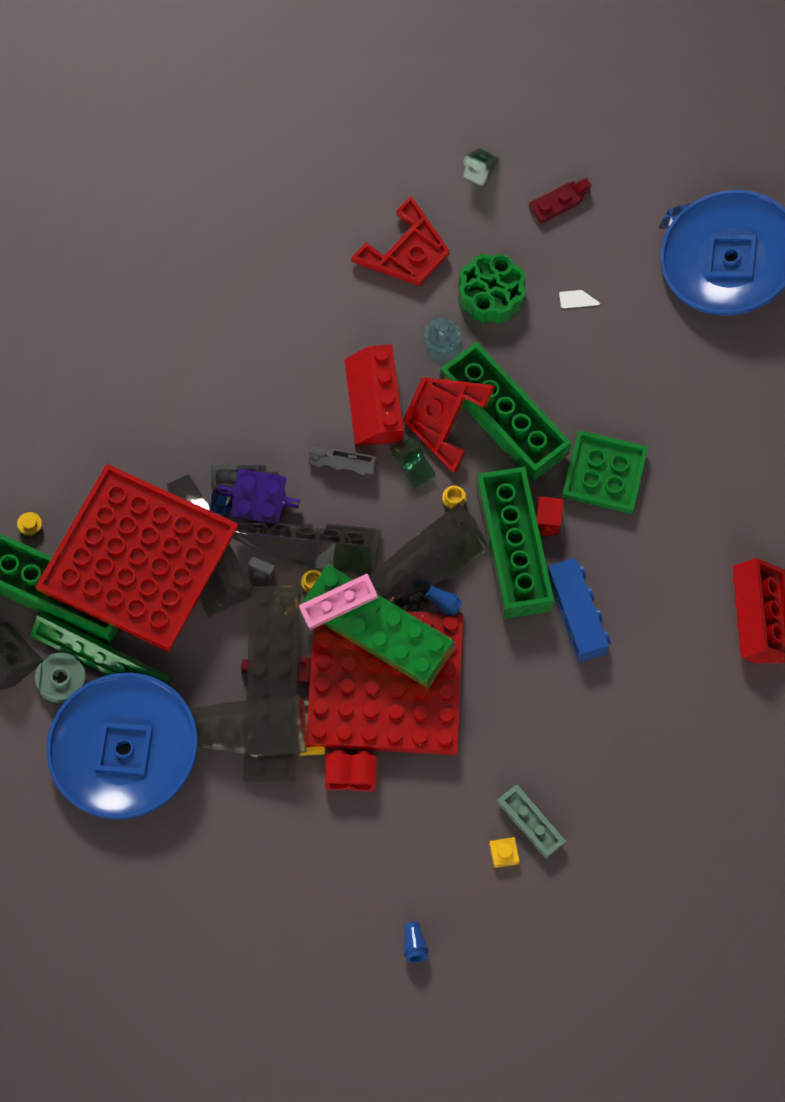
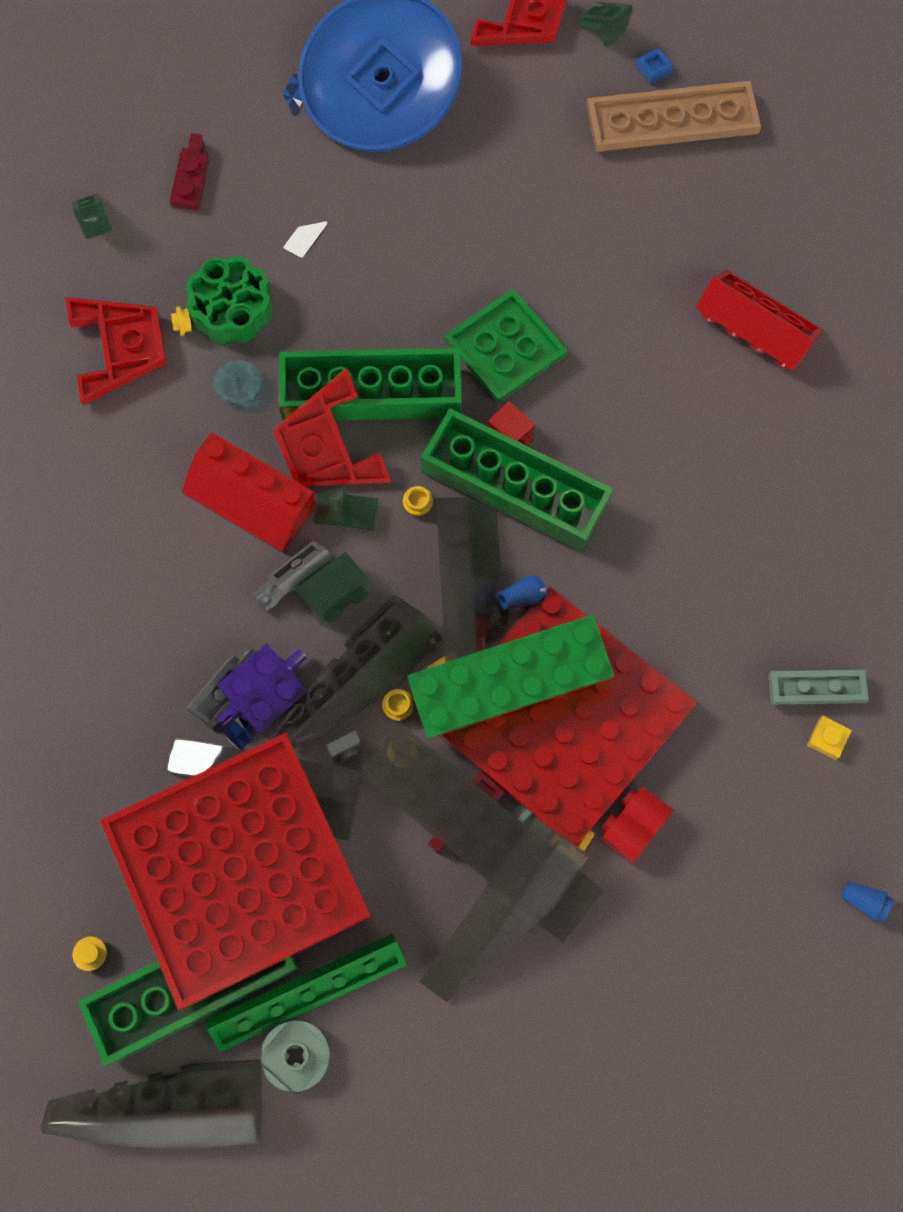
camera: 50 degrees left, 5 degrees up
(119, 712) = (419, 1101): blue dish -> none
(338, 601) = (463, 696): bright pink plate -> none
(354, 490) = (334, 589): none -> clear green brick
(452, 272) = (181, 321): none -> yellow plate
(578, 610) = (633, 477): blue brick -> none

